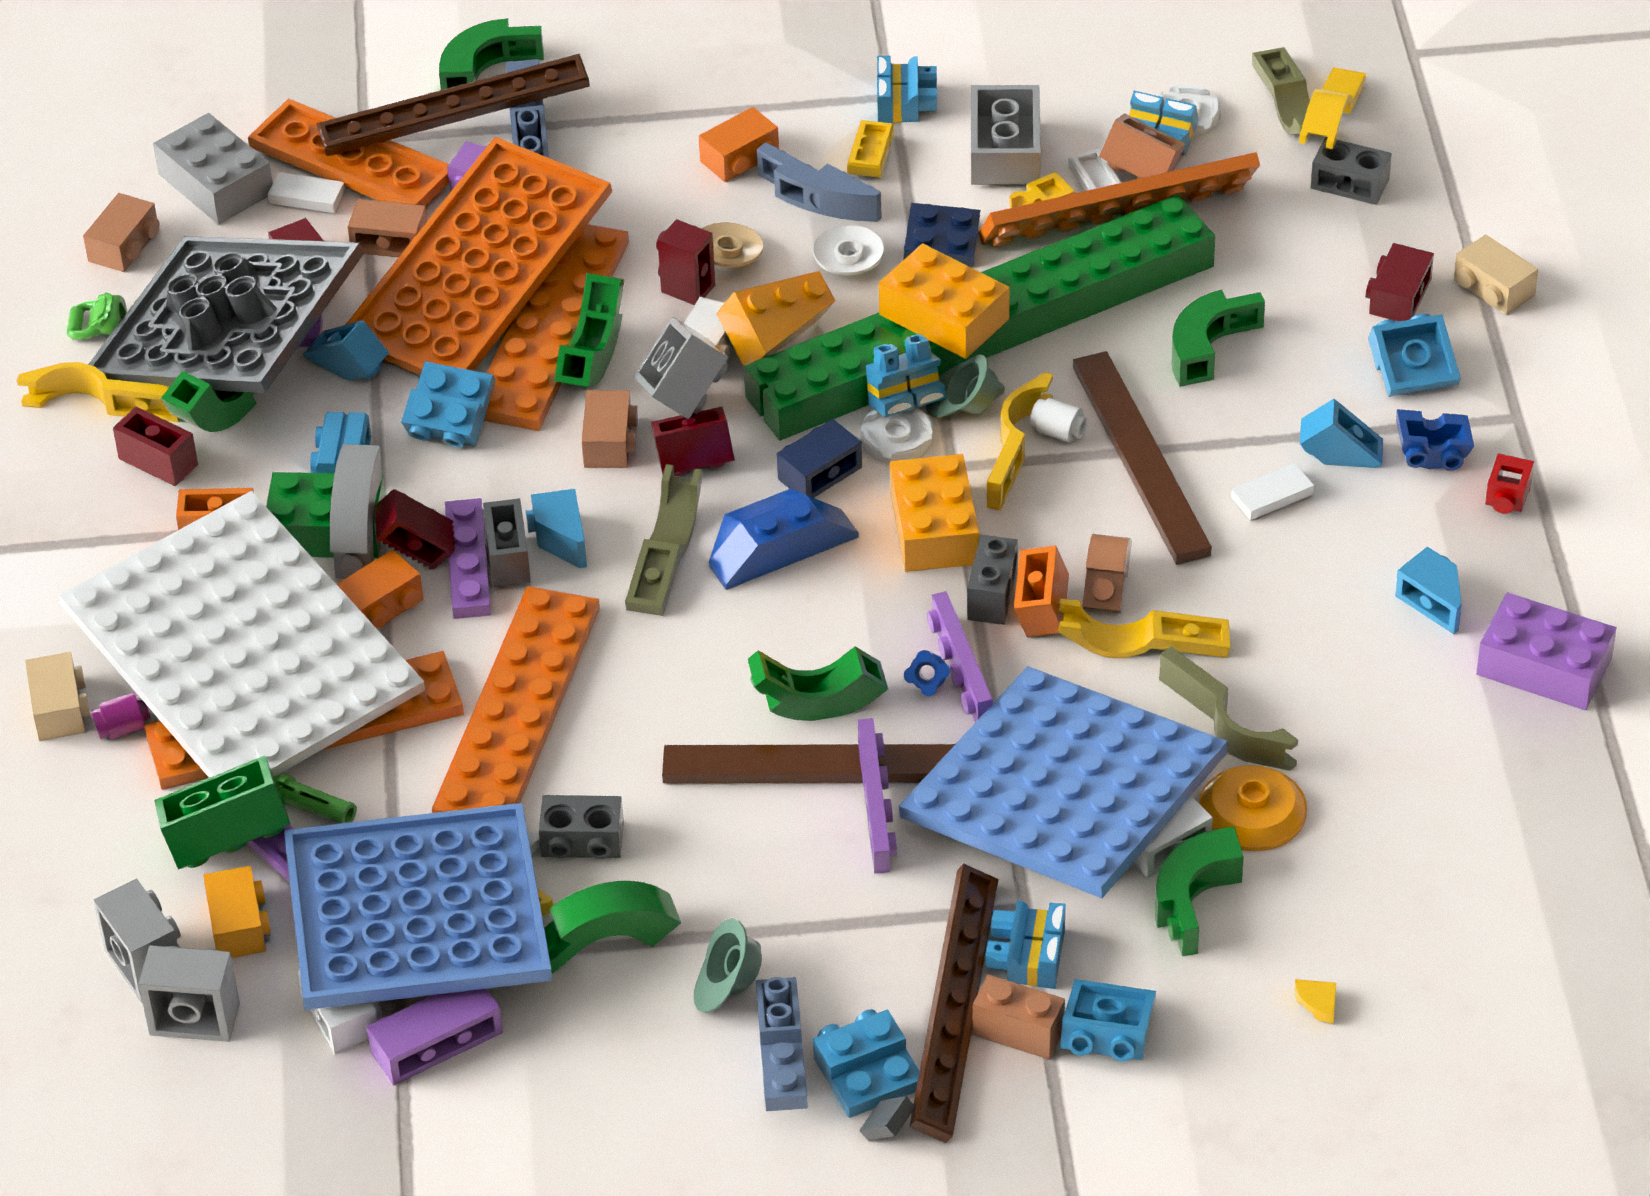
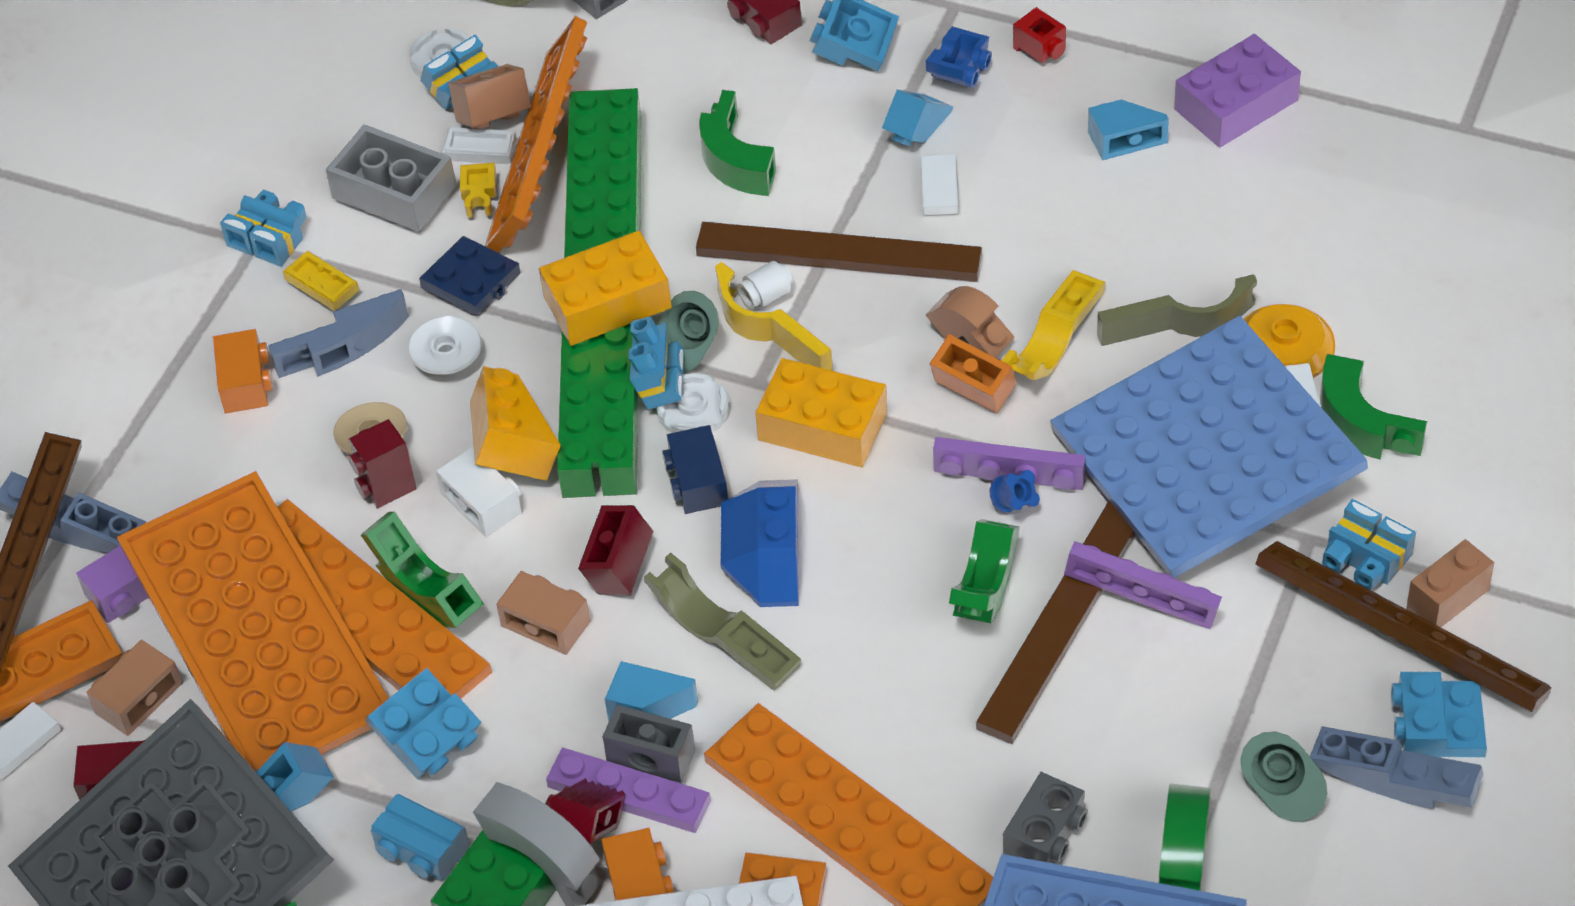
camera: 60 degrees left, 5 degrees up
(681, 368) = (543, 511): light grey brick -> none
(887, 1118) = (1514, 724): dark grey tile -> none
(992, 579) = (930, 403): dark grey brick -> none
(1107, 1020) = (1487, 519): dark azure plate -> none
(1317, 998) = (1520, 384): yellow tile -> none

